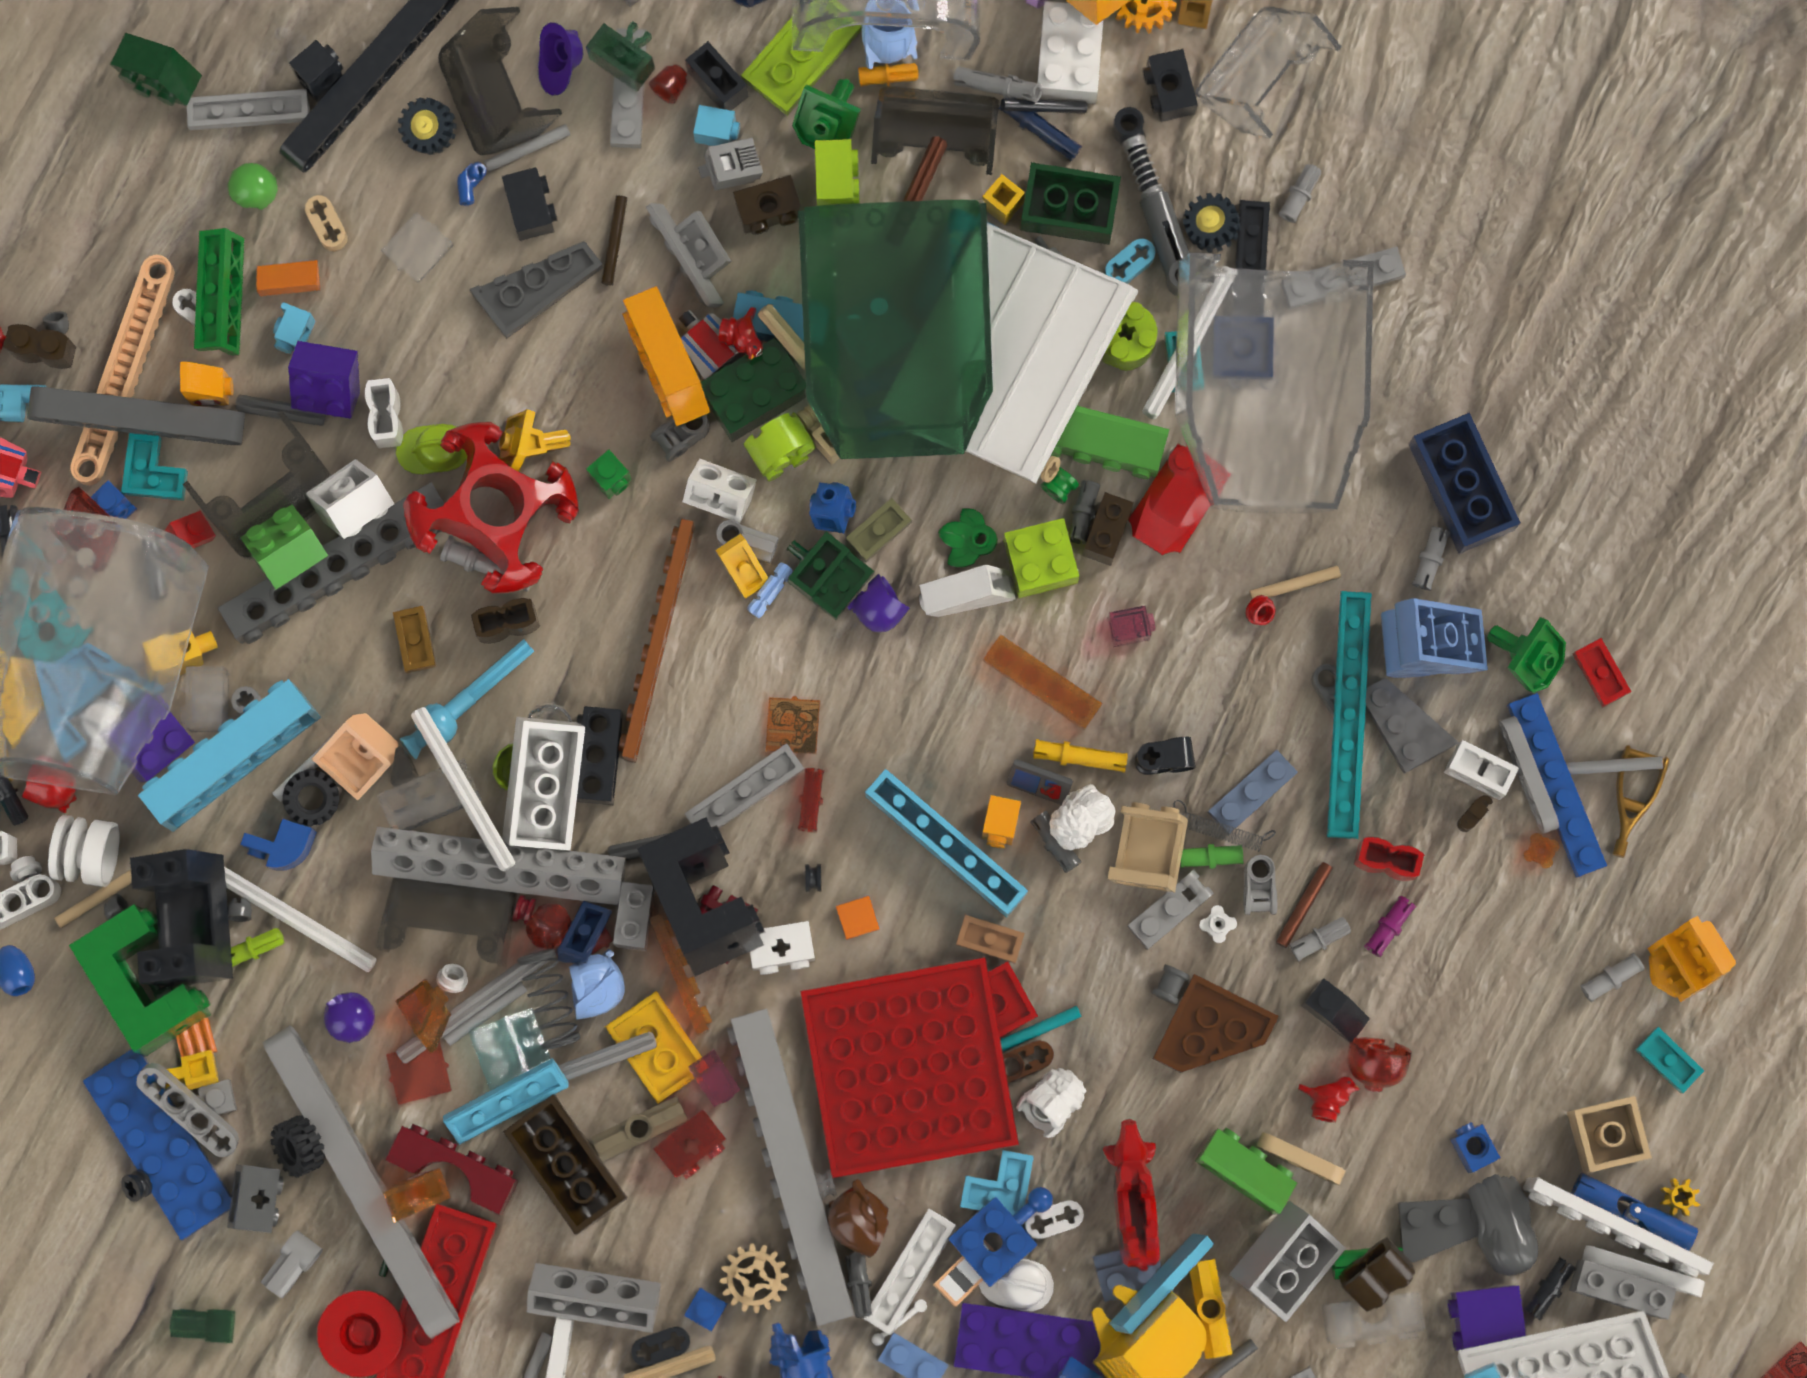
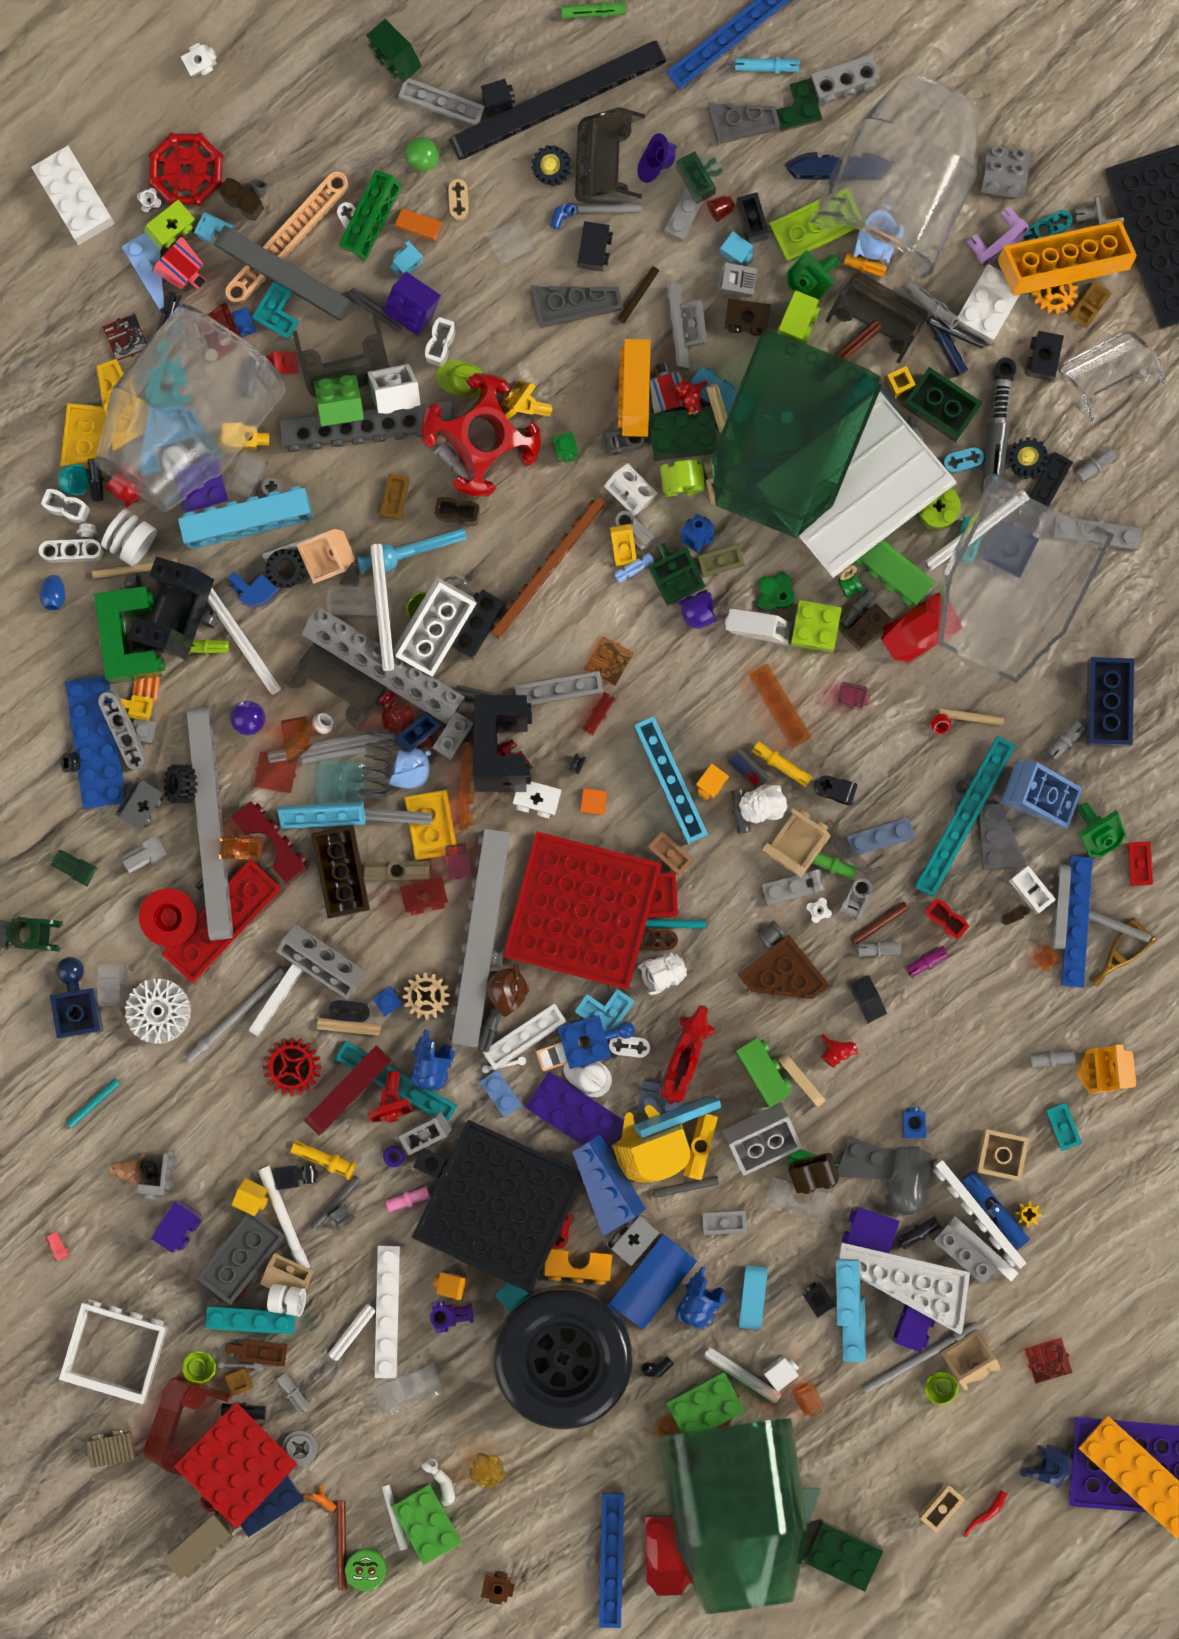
camera: 30 degrees right, 5 degrees up
(205, 384) = (335, 272): light orange slope -> none
(1377, 1064) = (877, 1043): clear red cylinder -> none

